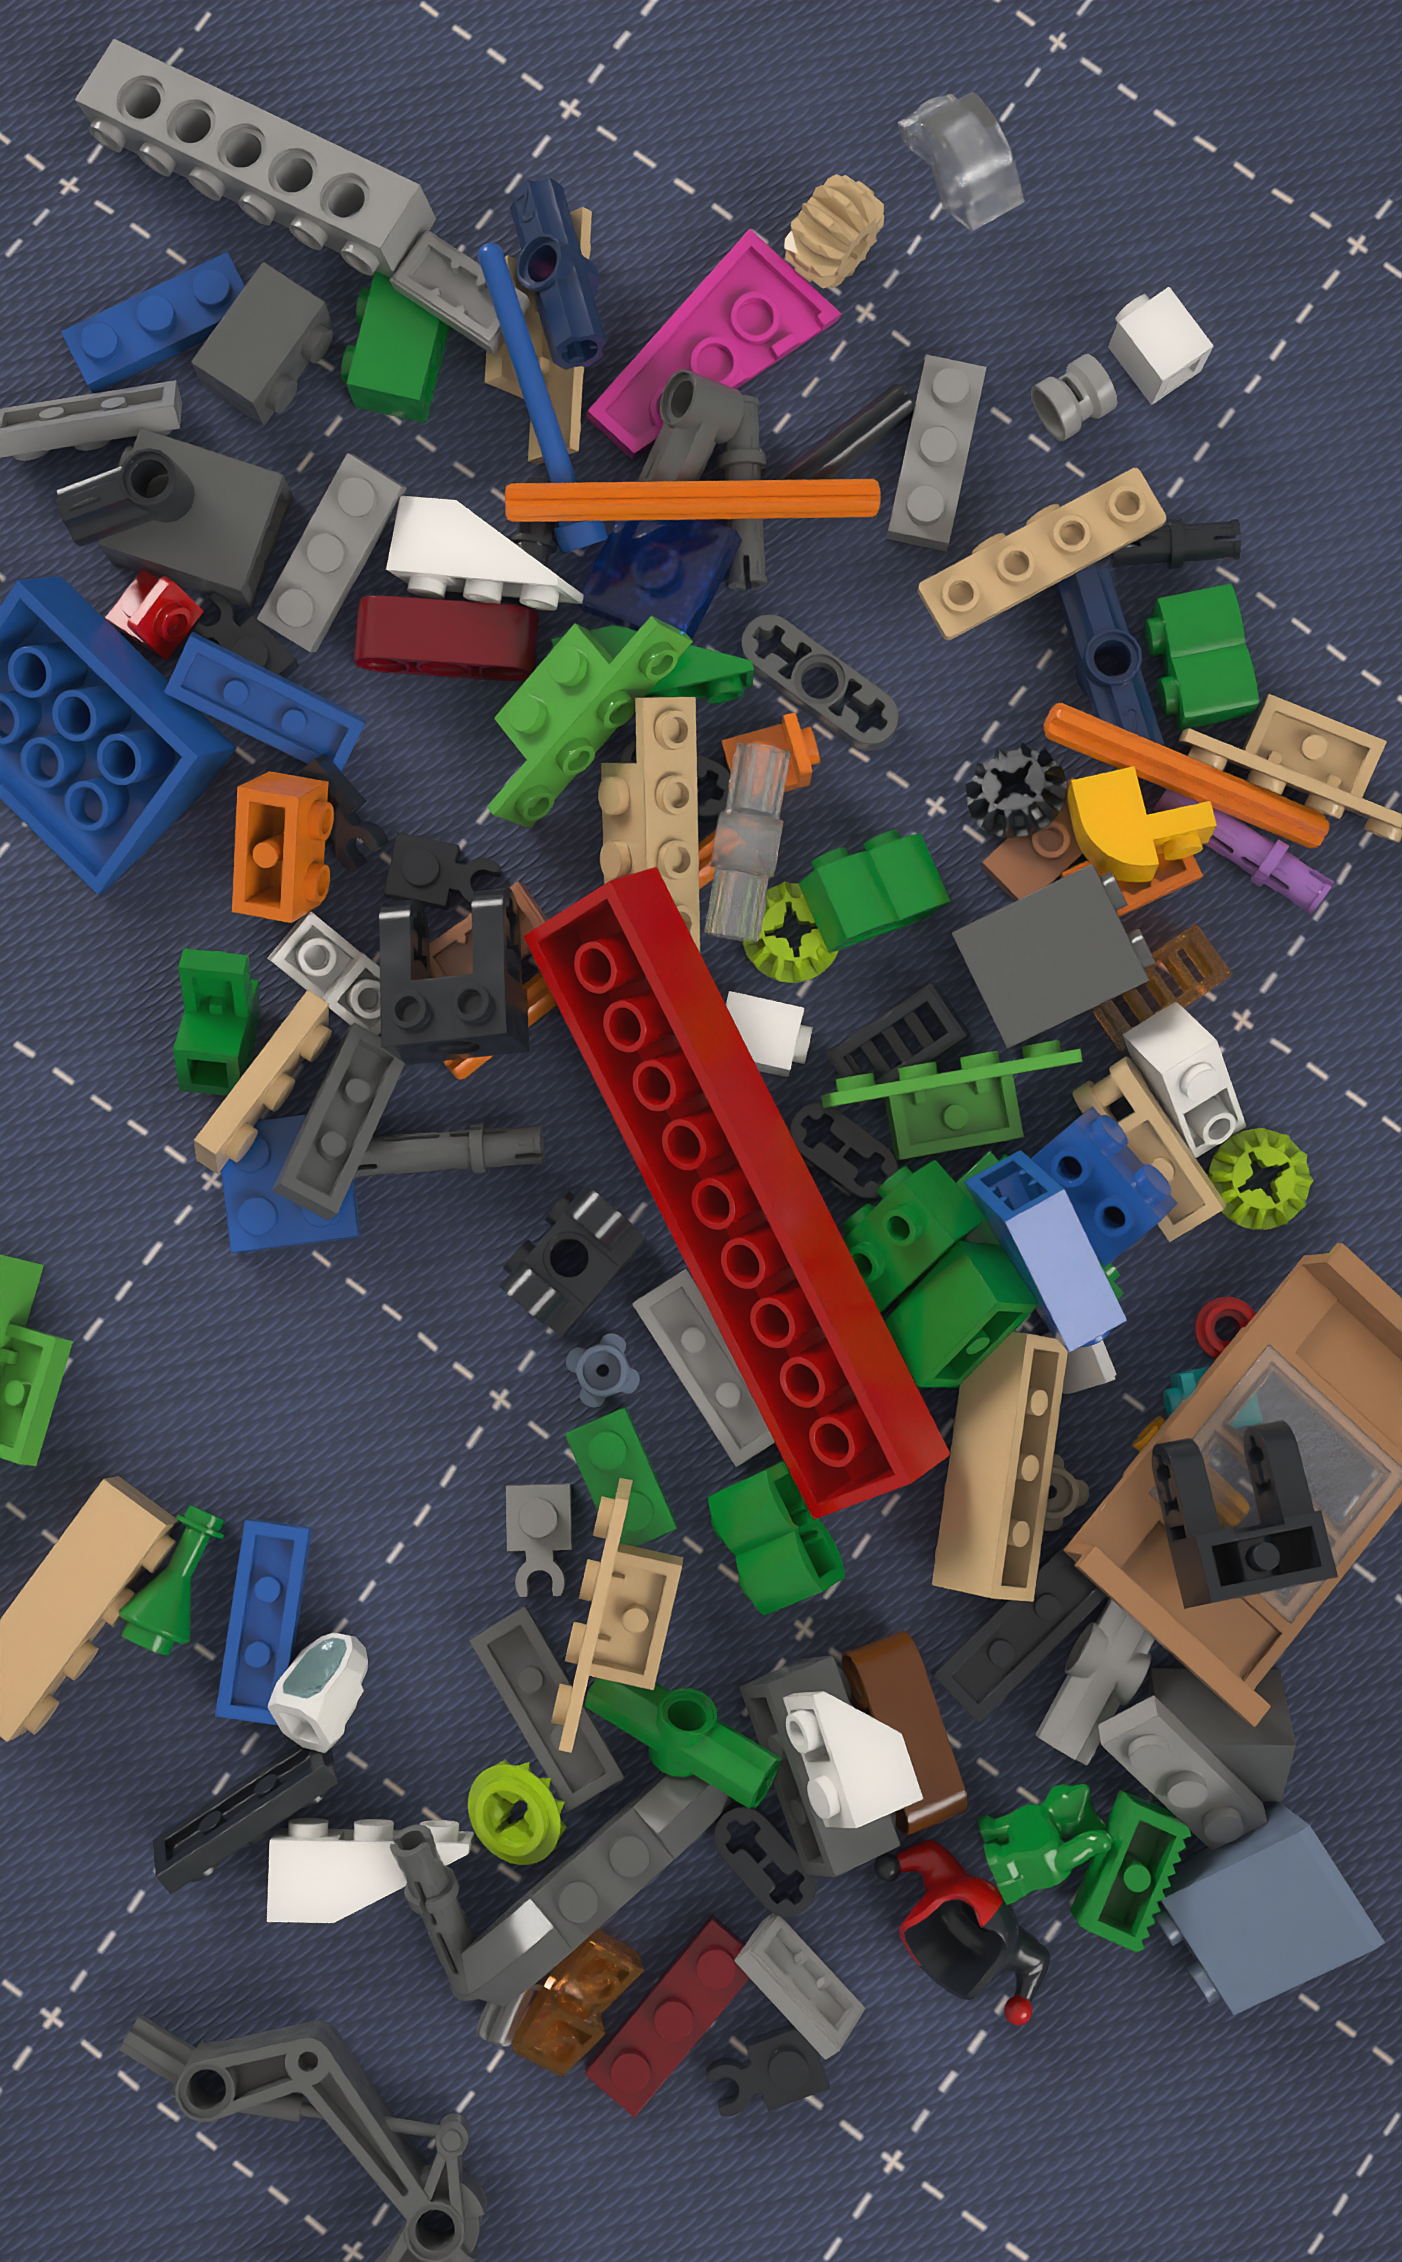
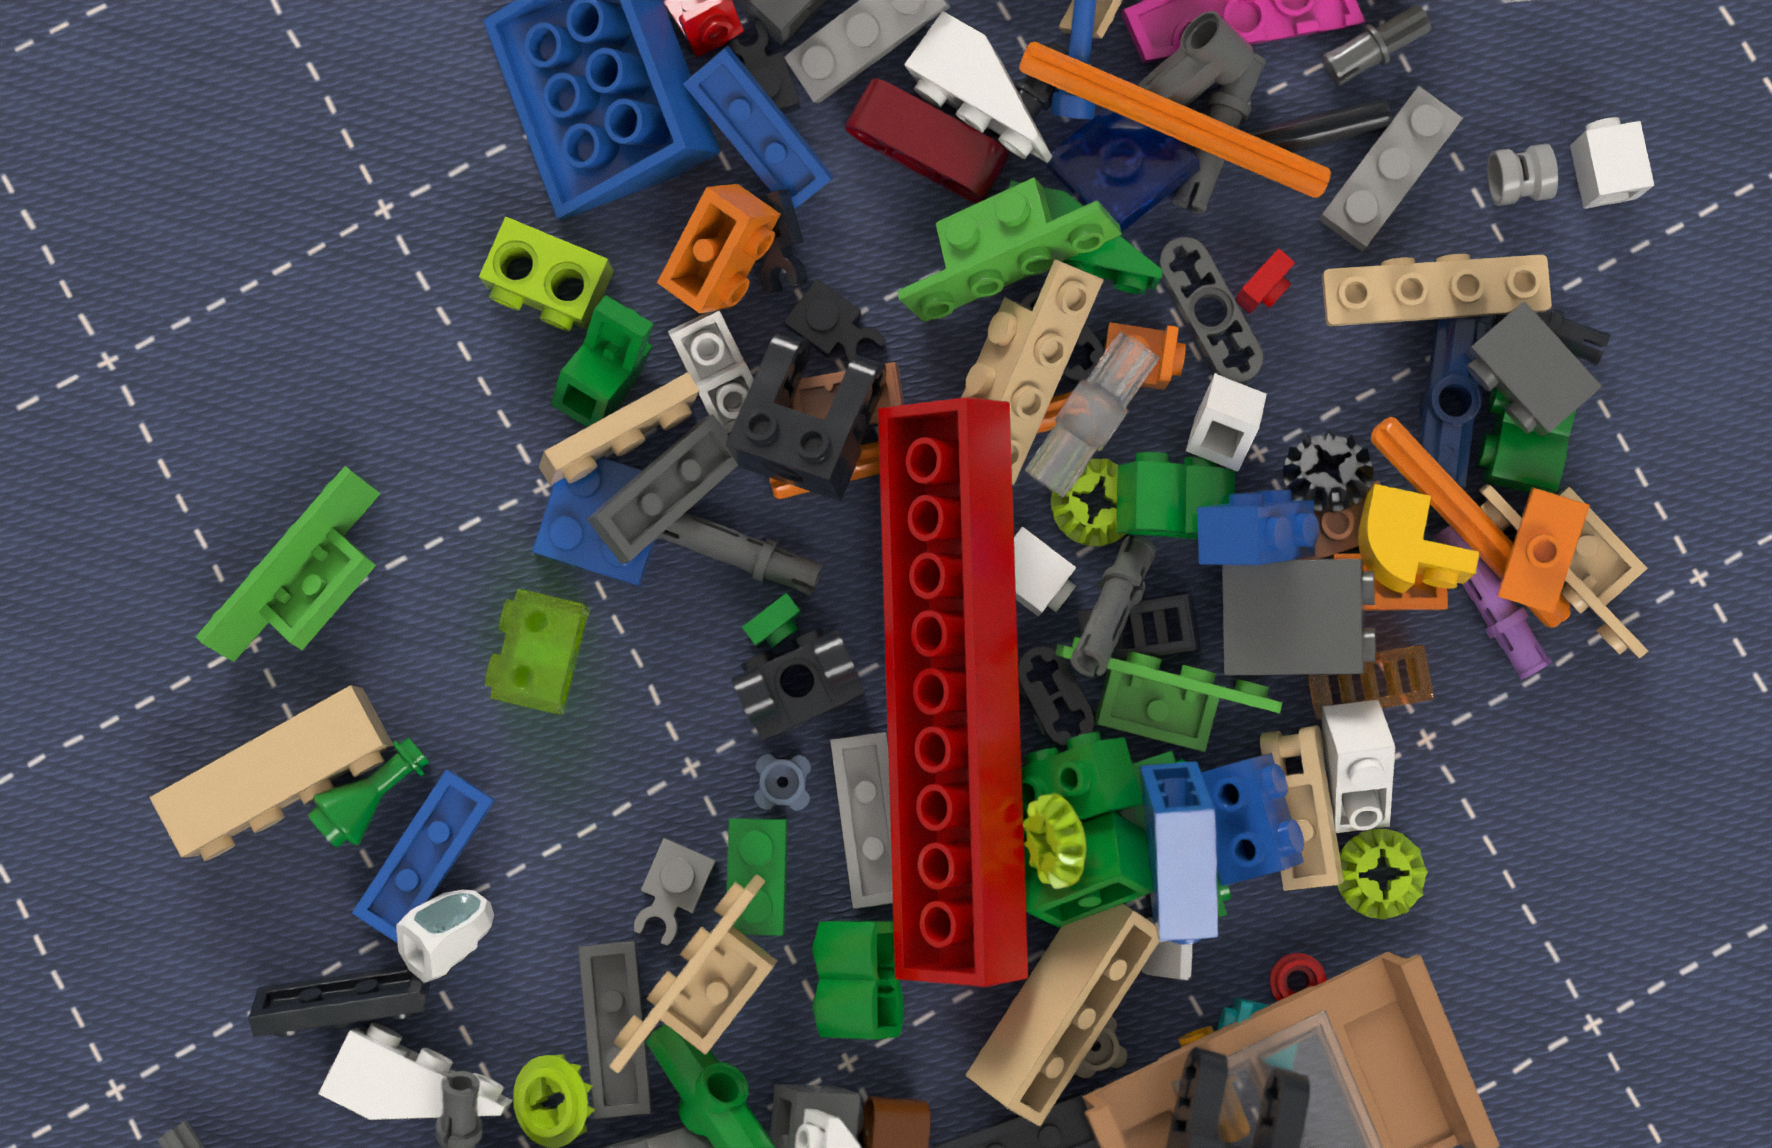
camera: 25 degrees right, 0 degrees up
(114, 941) = (552, 264): none -> lime brick
(284, 1352) = (537, 651): none -> clear neon green brick
(518, 1209) = (774, 623): none -> green plate
(861, 1009) = (1120, 590): none -> dark grey pin
(862, 332) = (1375, 45): none -> dark grey axle
(865, 626) = (1267, 283): none -> red plate
(889, 788) = (1226, 422): none -> white brick
(913, 1298) = (1055, 841): none -> lime gear
(972, 882) = (1257, 529): none -> blue brick
(1177, 591) = (1531, 371): none -> dark grey brick
(1273, 770) = (1543, 550): none -> orange plate

